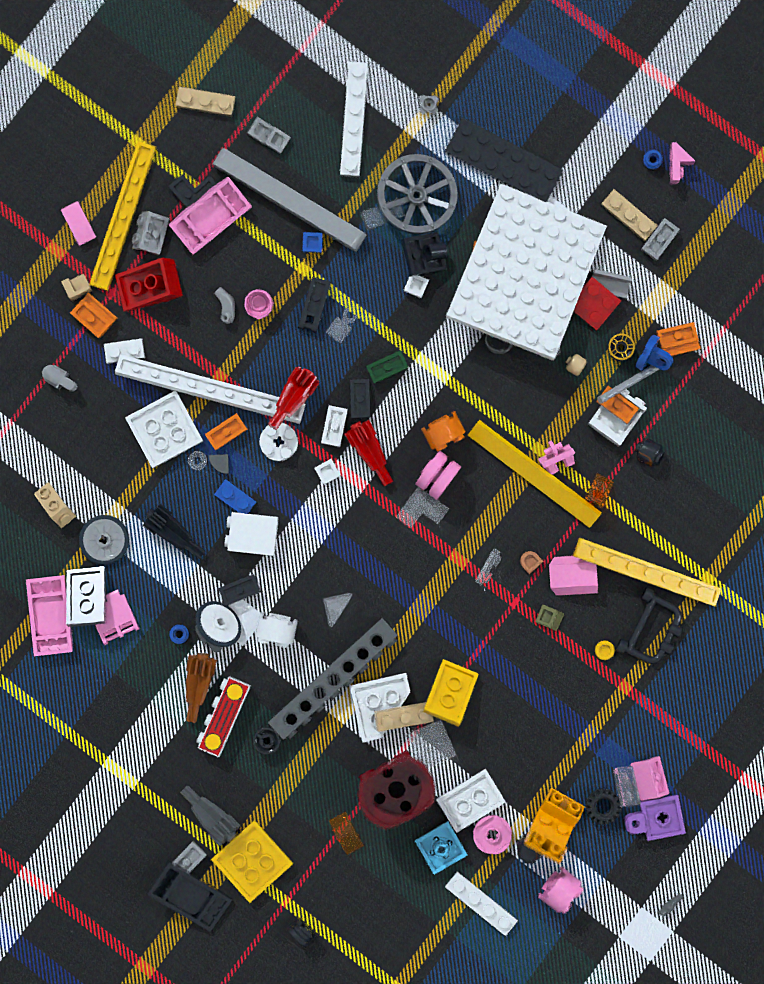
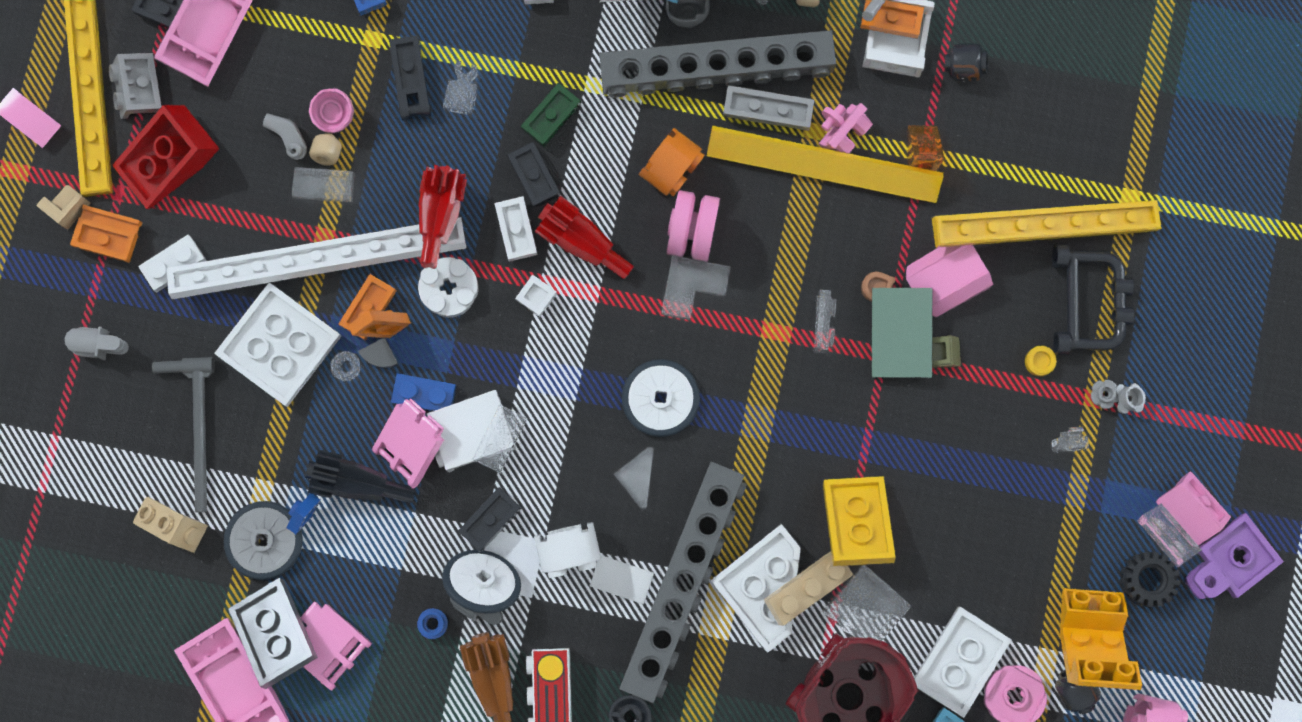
camera: 30 degrees left, 5 degrees down
(111, 422) = (197, 370): none -> dark grey bar
(133, 535) = (302, 512): none -> blue plate
(215, 523) = (411, 440): none -> bright pink plate
(228, 446) = (379, 323): none -> orange plate
(233, 346) = (323, 184): none -> clear plate
(245, 324) = (325, 149): none -> tan piece
(266, 547) = (499, 438): none -> clear plate
(299, 660) = (621, 579): none -> white sticker
(361, 558) = (660, 418): none -> white wheel
(518, 423) = (768, 108): none -> light grey plate
(530, 595) = (902, 332): none -> sand green tile
(565, 399) = (729, 52): none -> dark grey brick
(597, 705) = (1070, 441): none -> clear plate
(627, 687) = (1097, 394): none -> light grey plate
(650, 697) = (1136, 397): none -> light grey plate

